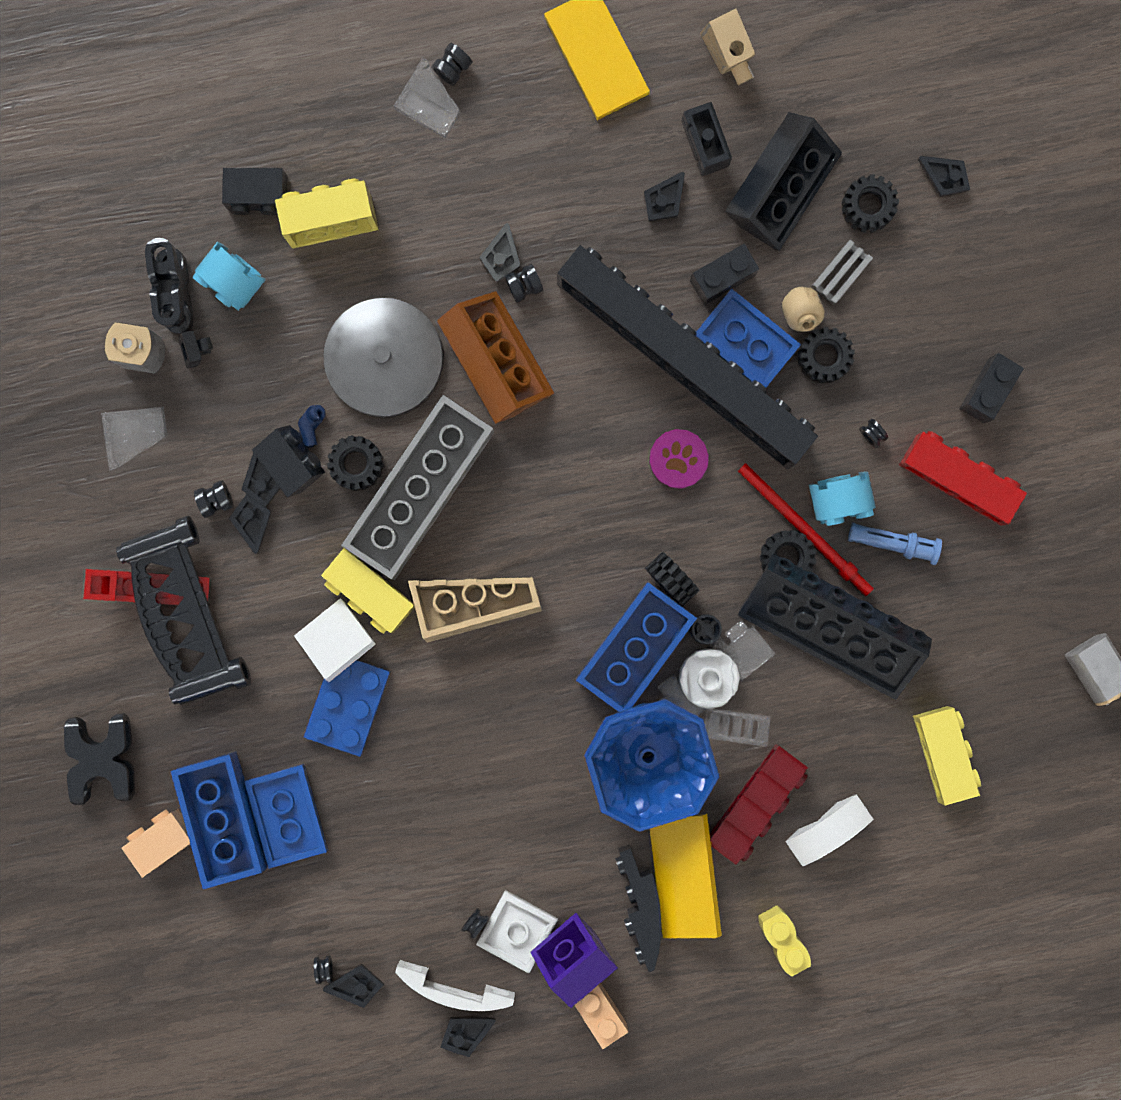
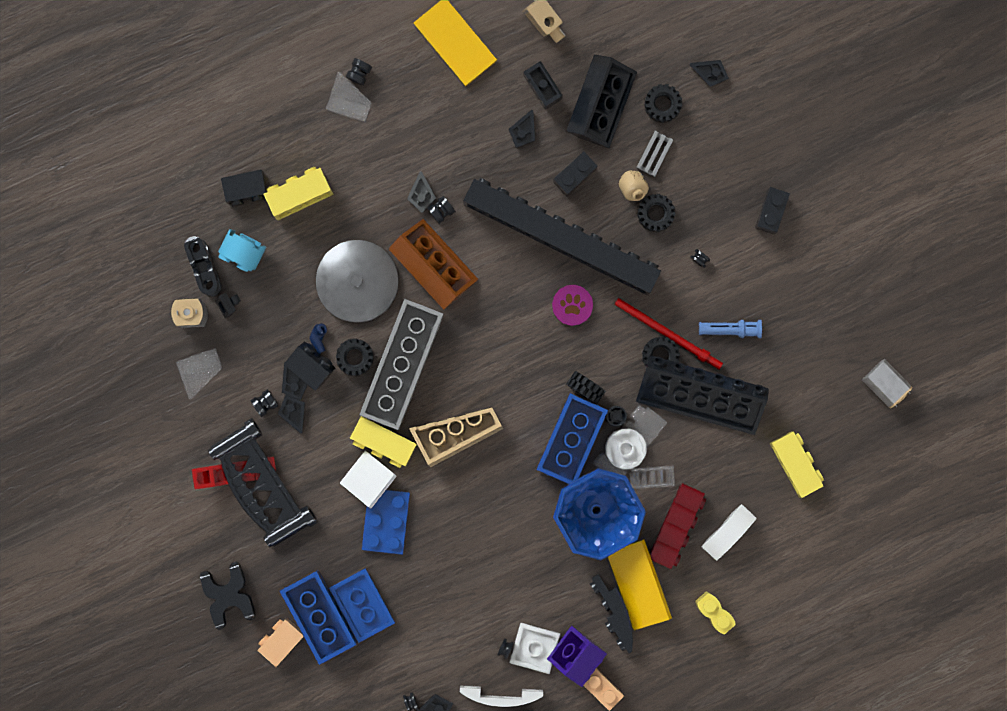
camera: 15 degrees left, 0 degrees up
(747, 338) = (600, 214): blue plate -> none
(842, 497) = (688, 307): medium azure brick -> none
(963, 478) = (766, 275): red brick -> none

